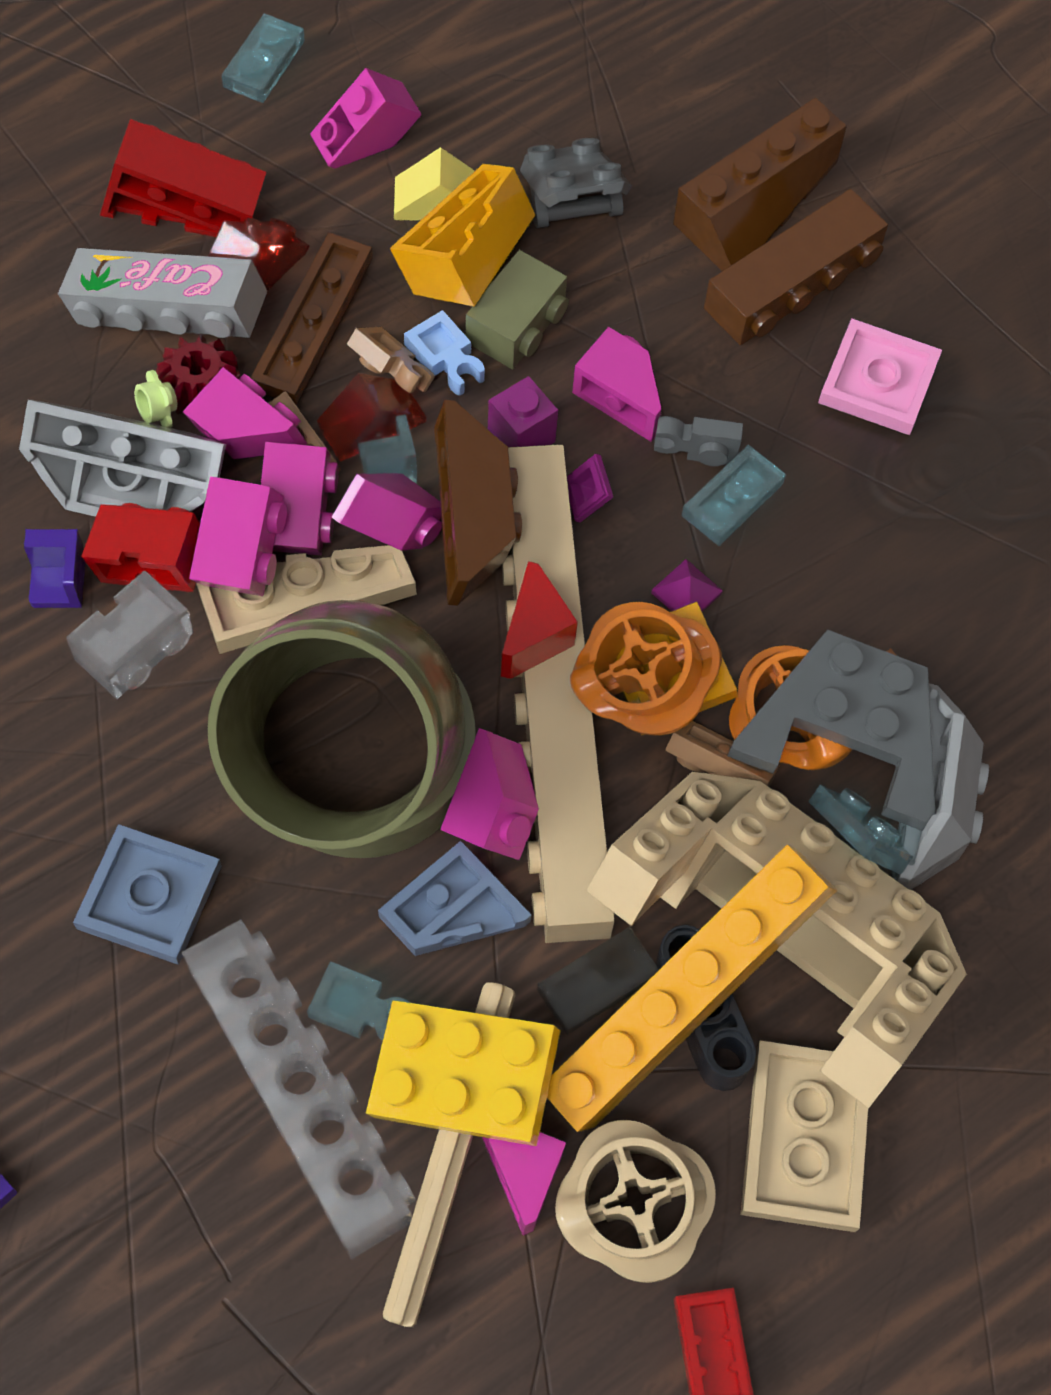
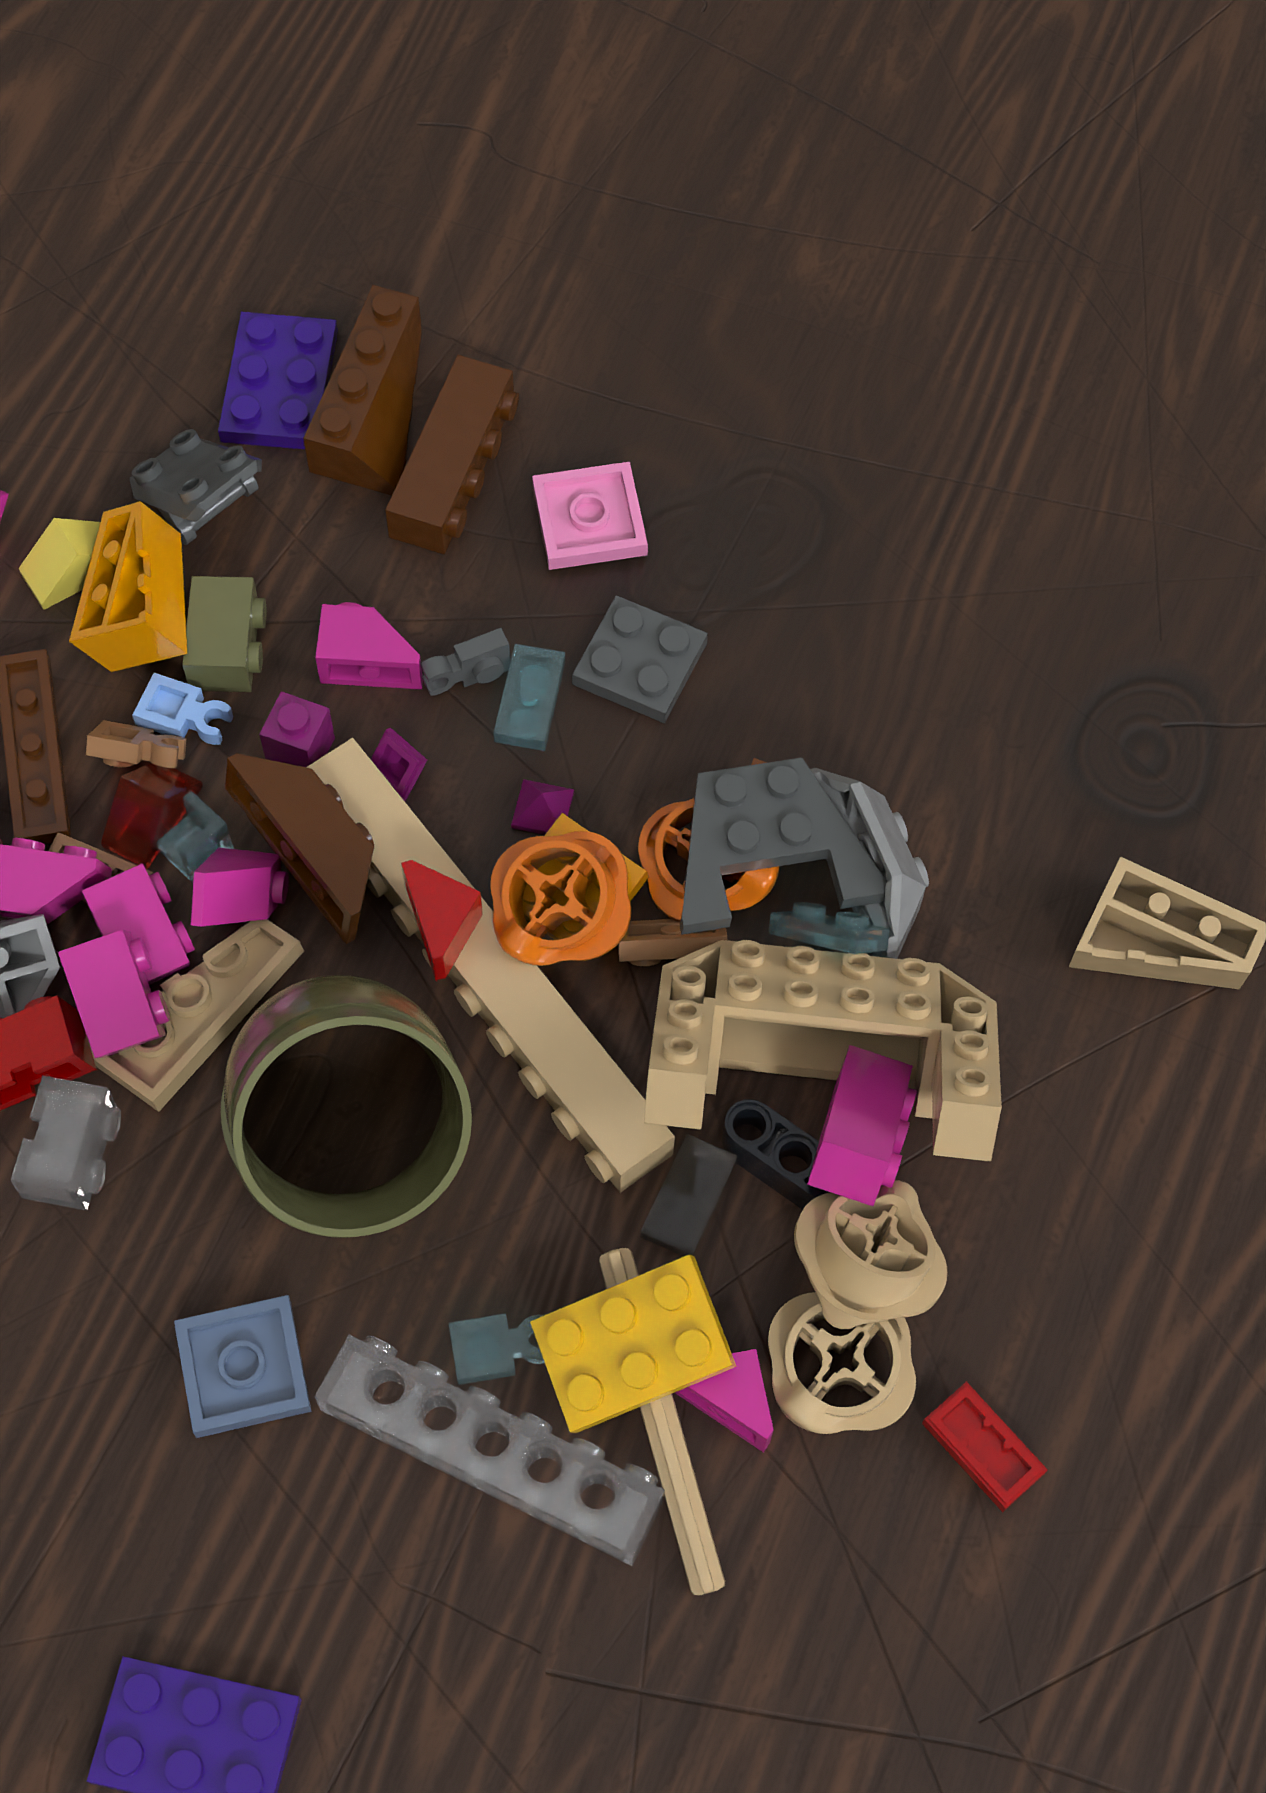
camera: 30 degrees left, 0 degrees up
(452, 905) = (521, 1208): sand blue wing -> none
(493, 797) = (504, 1091): dark pink slope -> none
(688, 988) = (779, 1155): light orange brick -> none
(692, 134) = (276, 379): none -> dark purple plate
(723, 1159) = (869, 1258): none -> tan piece
(780, 1011) = (864, 1127): none -> dark pink brick
(803, 1142) = (966, 1223): tan plate -> none
(848, 516) = (640, 659): none -> dark grey plate

